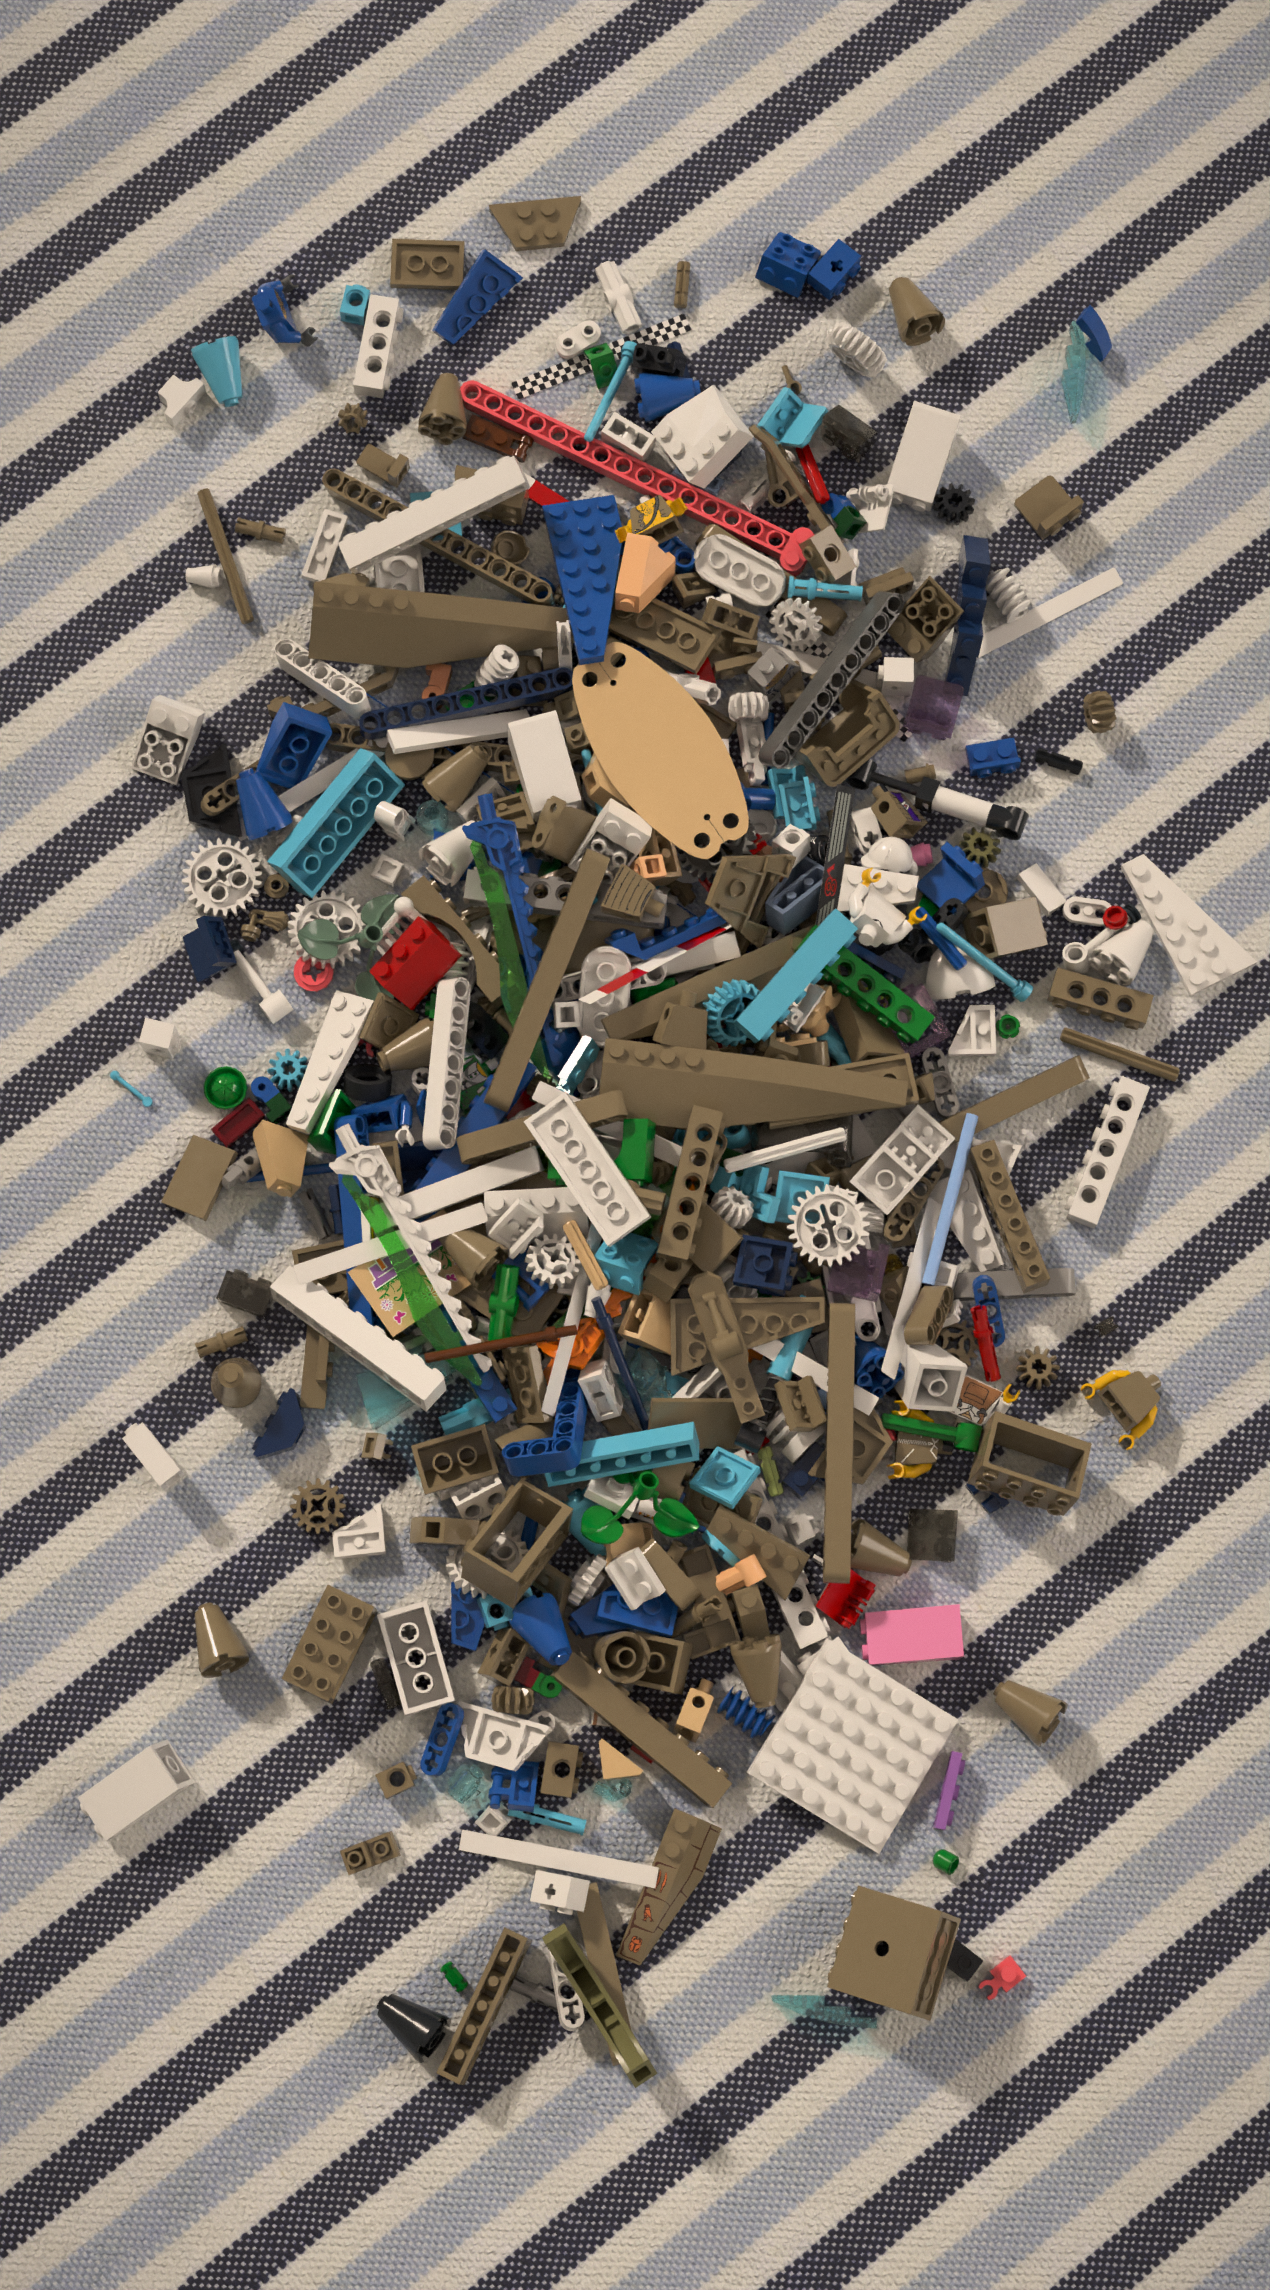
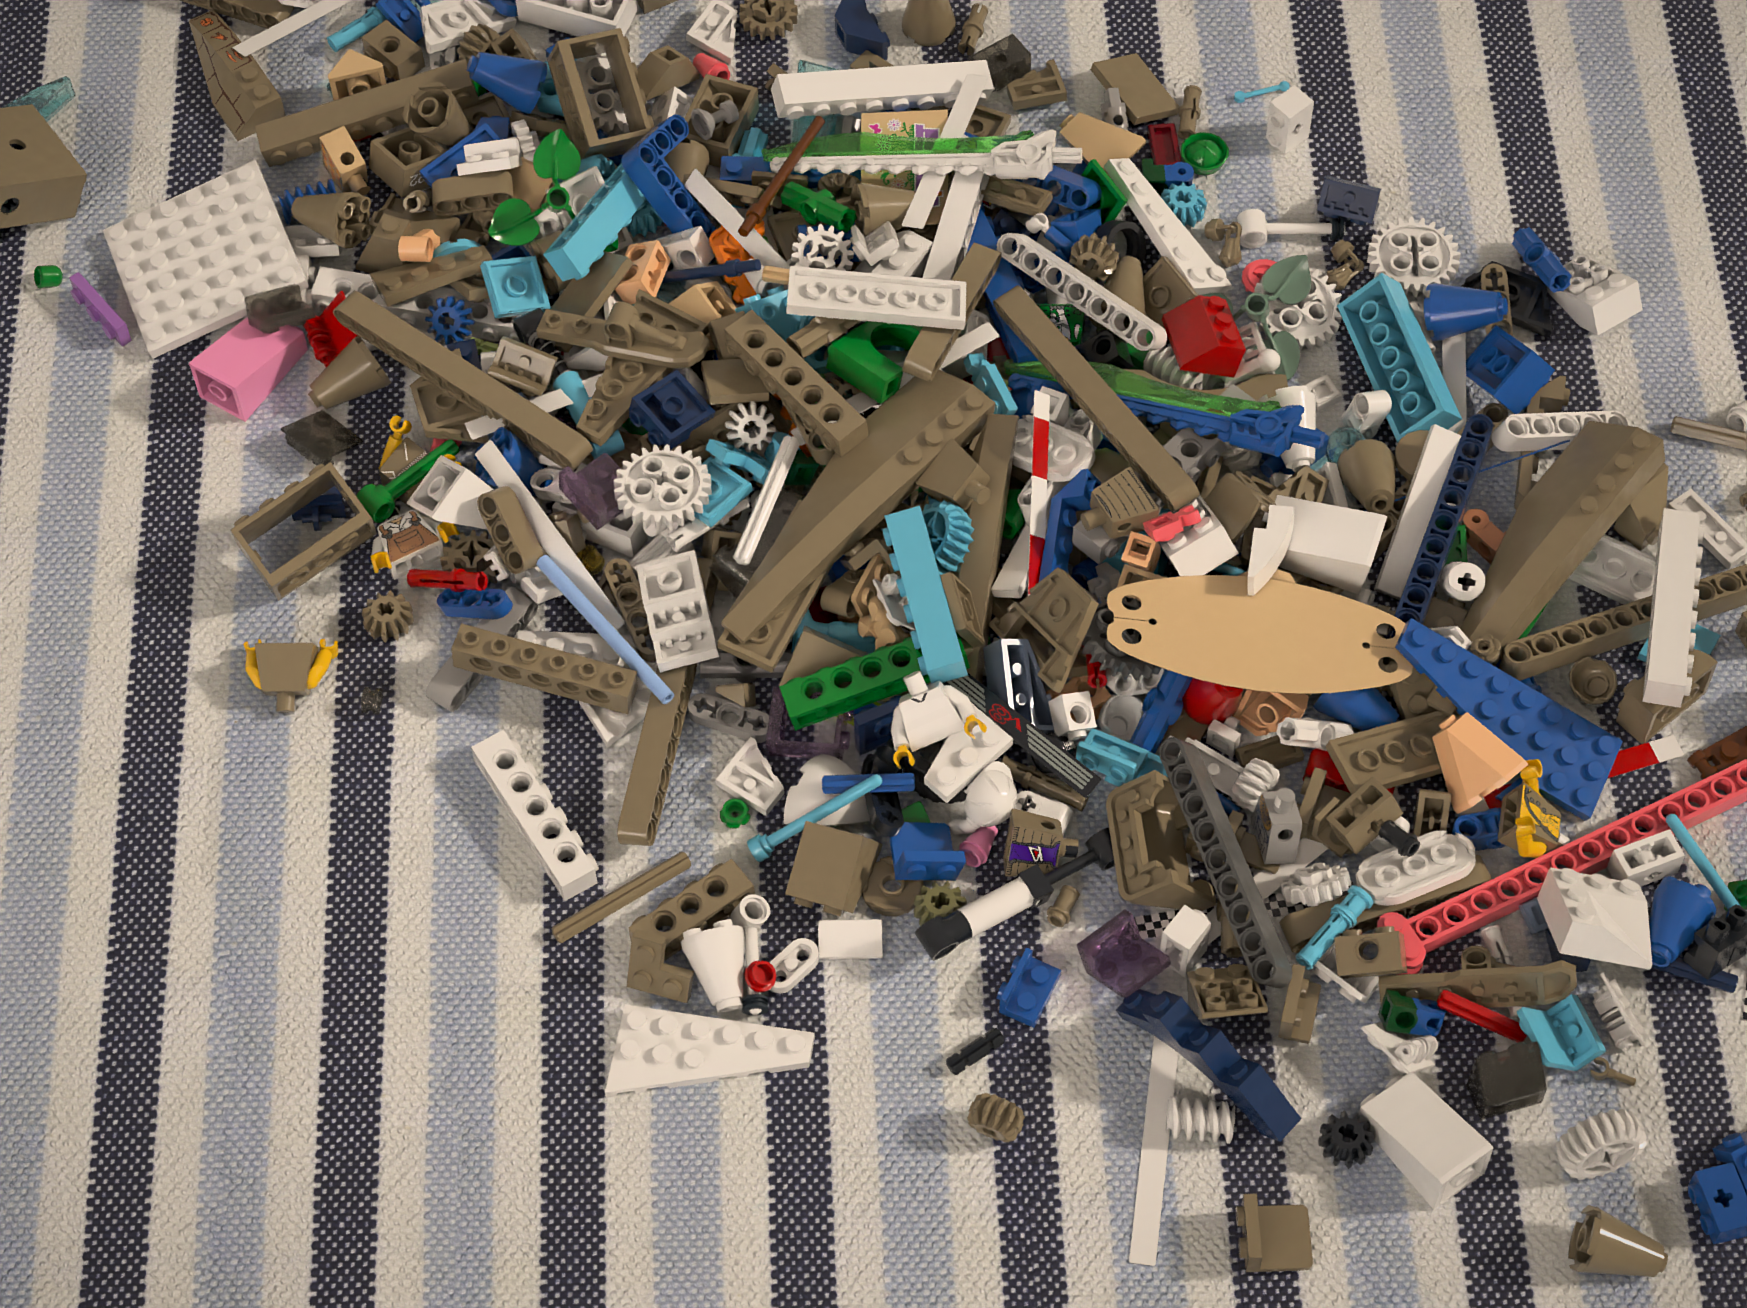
camera: 130 degrees right, 20 degrees down
(161, 796) = (1541, 259): none -> blue piece
(193, 1124) = (1189, 111): none -> dark tan pin
(246, 1251) = (1037, 88): none -> dark tan wing
(307, 1009) = (1231, 250): none -> dark tan piece
(402, 1510) = (711, 66): none -> coral cone
(405, 1078) = (1094, 257): none -> dark tan gear
(479, 1449) = (705, 122): none -> light grey piece
(549, 610) = (1493, 651): none -> dark tan plate
(590, 781) = (1269, 546): none -> white slope
(627, 852) = (1167, 525): none -> coral plate
(641, 1392) = (647, 271): none -> light nougat brick
(730, 588) = (1405, 843): none -> black pin
(753, 391) = (1613, 1006): none -> white hinge
(782, 1508) = (454, 310): none -> blue gear
(784, 949) = (962, 610): none -> dark tan tile
(867, 1636) = (278, 308): none -> clear smoke bracket
(1030, 1710) = (101, 407): dark tan cone -> none
(1157, 988) = (650, 973): none -> dark tan plate

